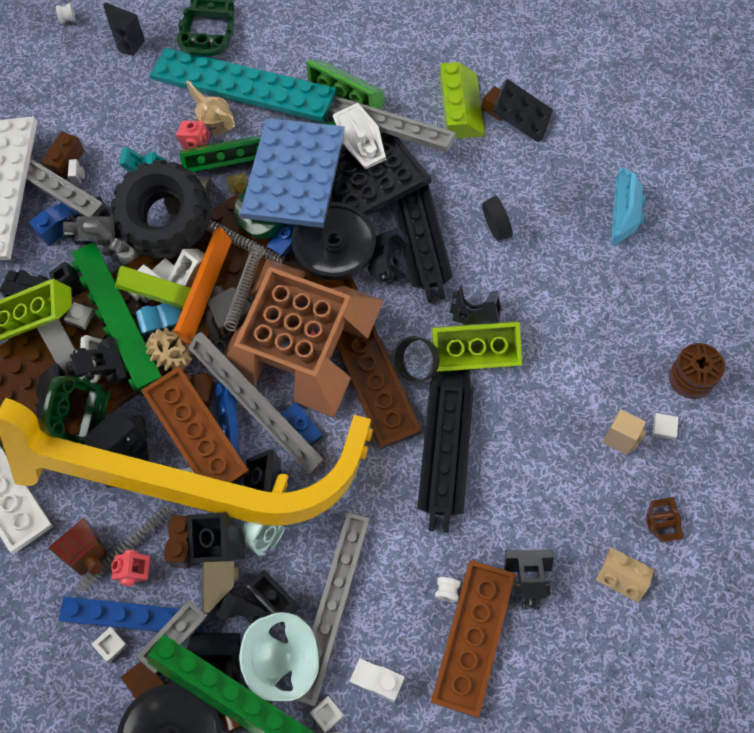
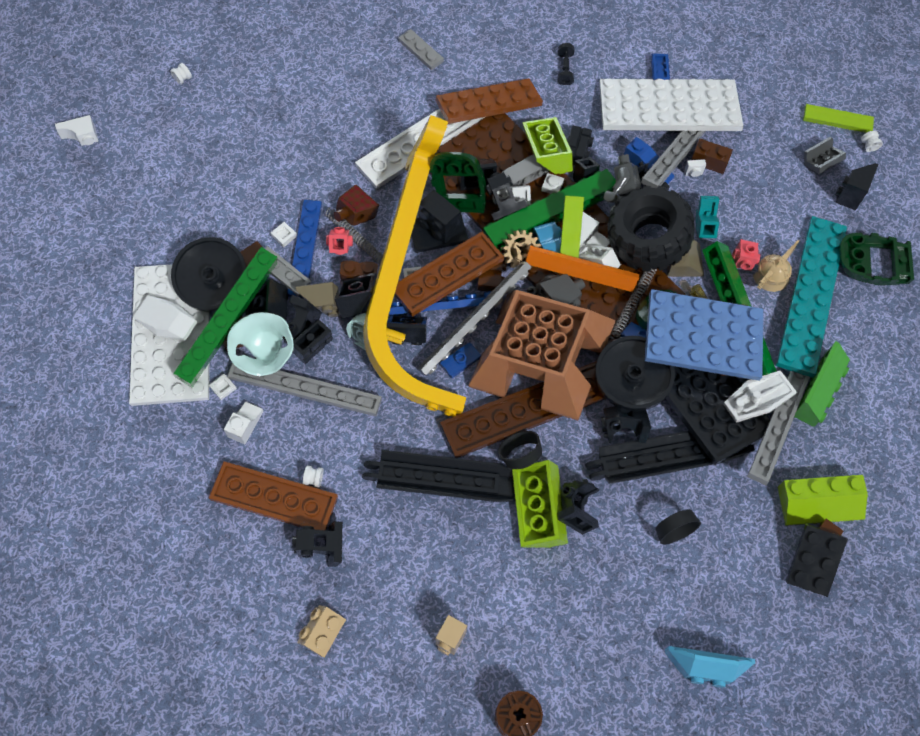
camera: 85 degrees right, 0 degrees up
(30, 40) = (838, 118): none -> lime tile
(78, 56) = (823, 156): none -> dark grey bracket
(243, 288) = (573, 295): light grey piece -> none
(665, 426) = (463, 684): white tile -> none
(674, 520) = (369, 671): reddish brown piece -> none

